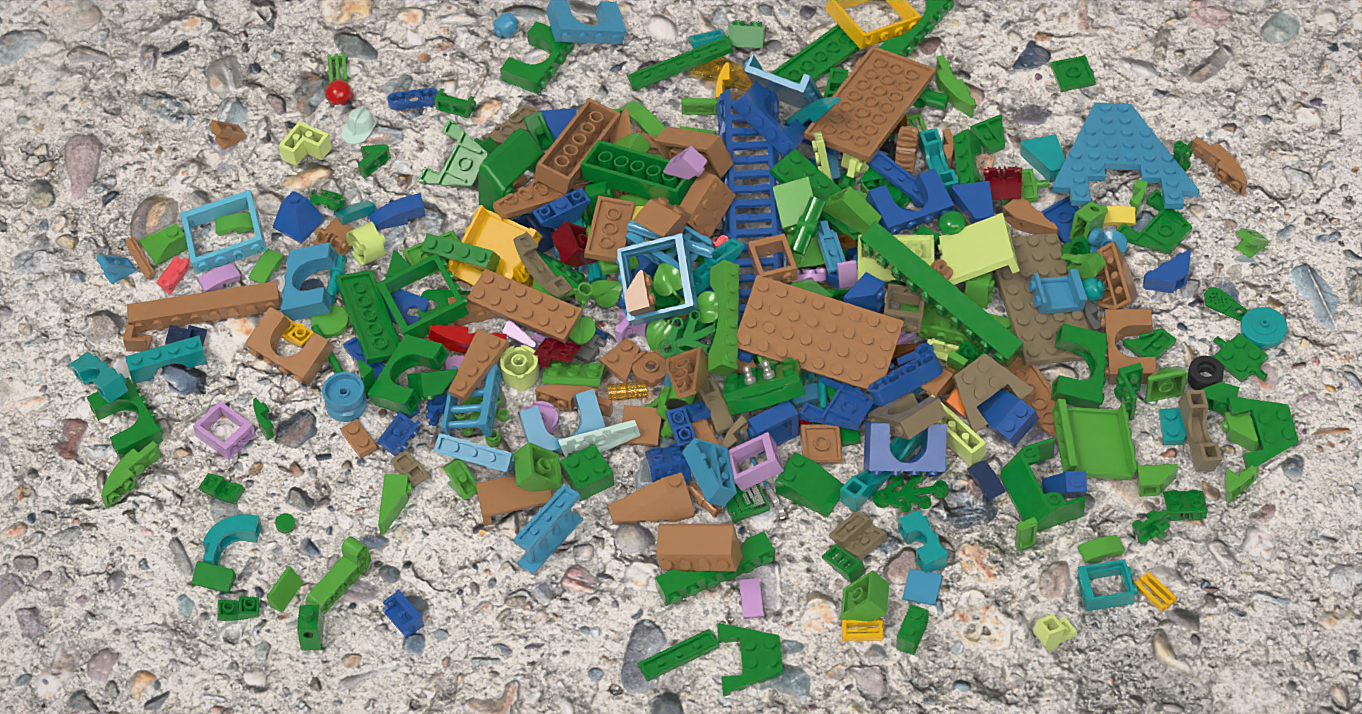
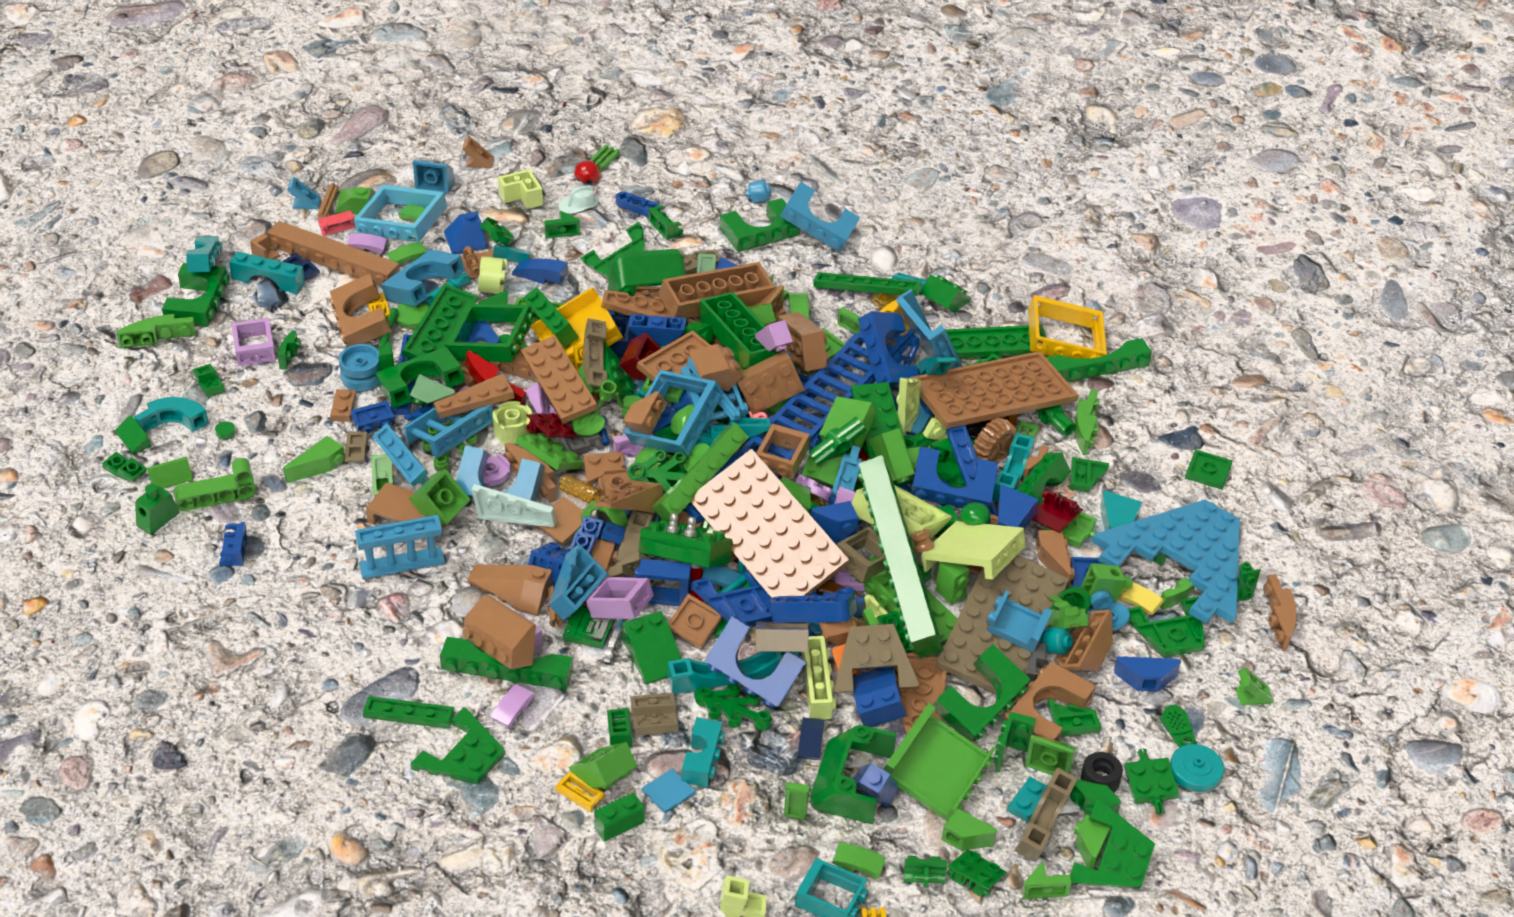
camera: 30 degrees right, 10 degrees down
(214, 179) = (433, 176): none -> dark azure slope
(587, 472) = (482, 529): green brick -> none

